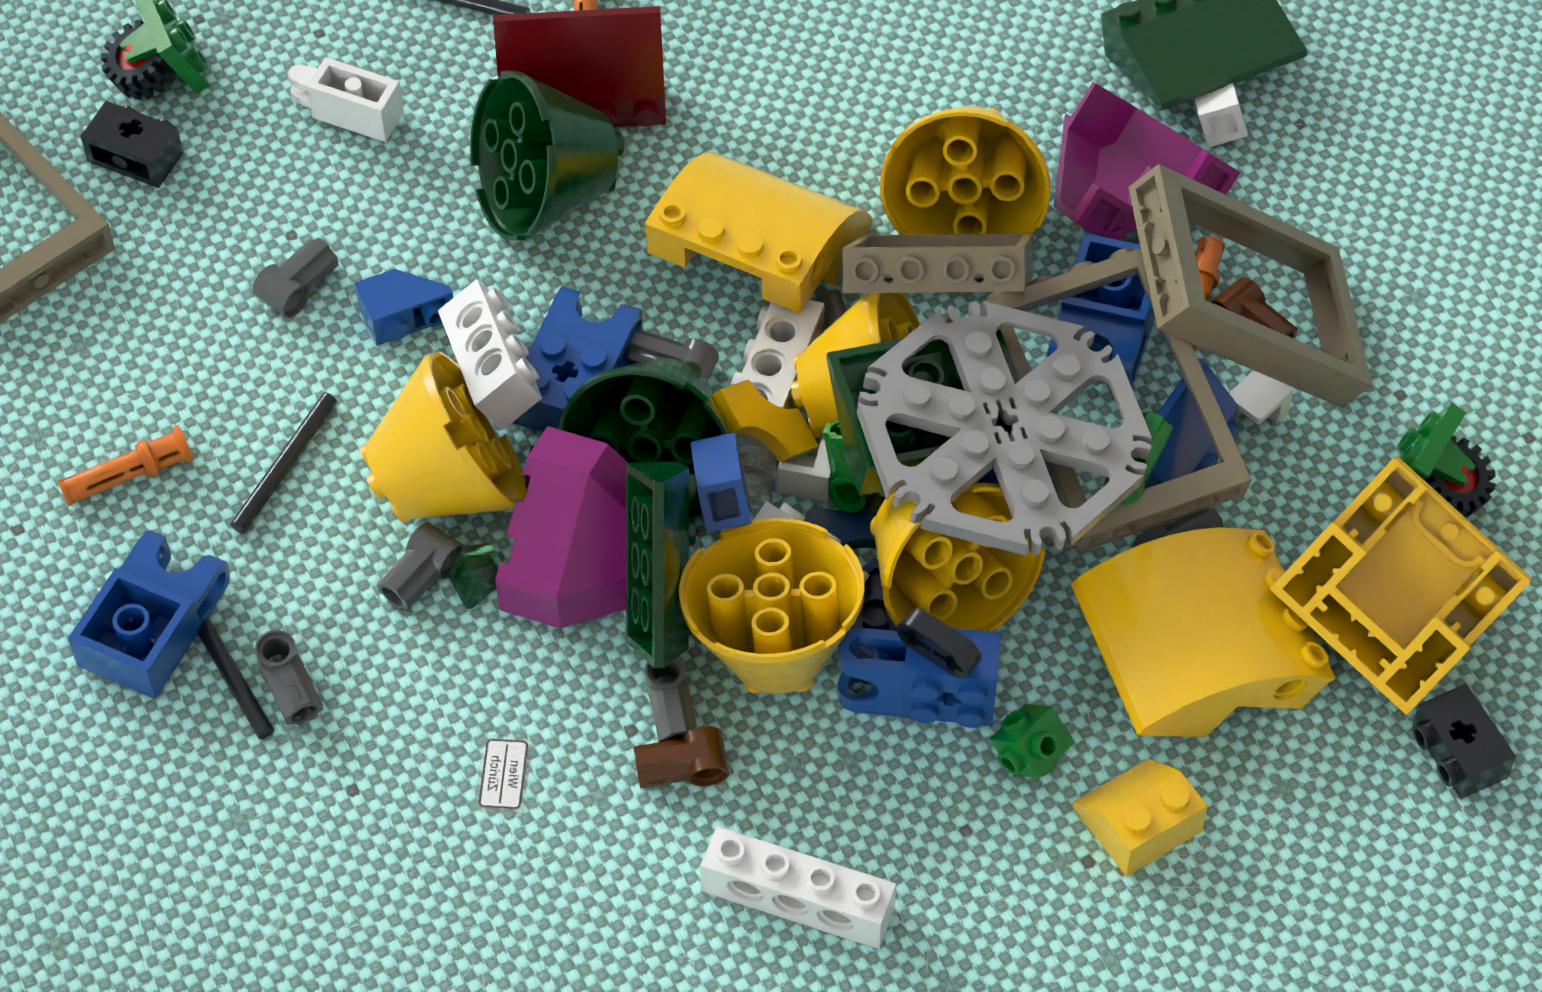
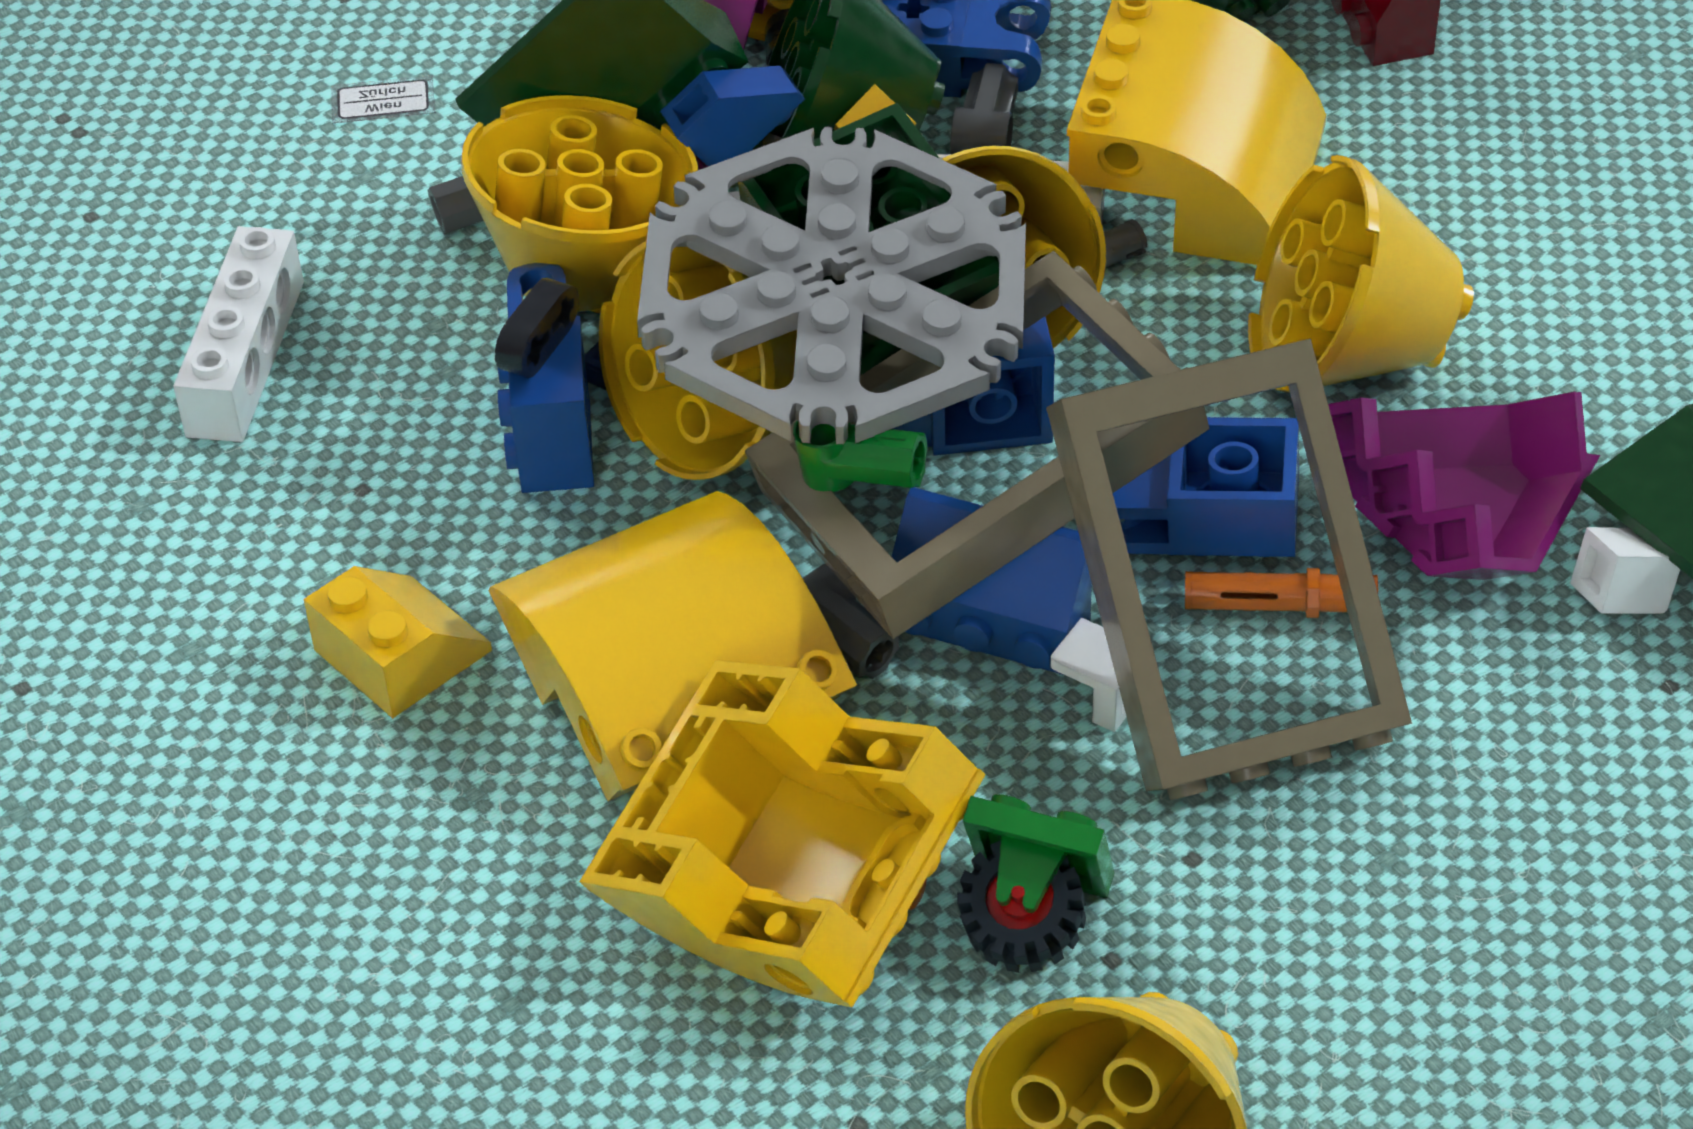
camera: 80 degrees right, 10 degrees down
(693, 758) = (408, 219): reddish brown piece -> none
(938, 263) = (1050, 130): dark tan window -> none
(1031, 741) = (476, 504): green brick -> none
(1248, 300) = (1261, 647): reddish brown piece -> none
(1462, 741) = (564, 970): black brick -> none

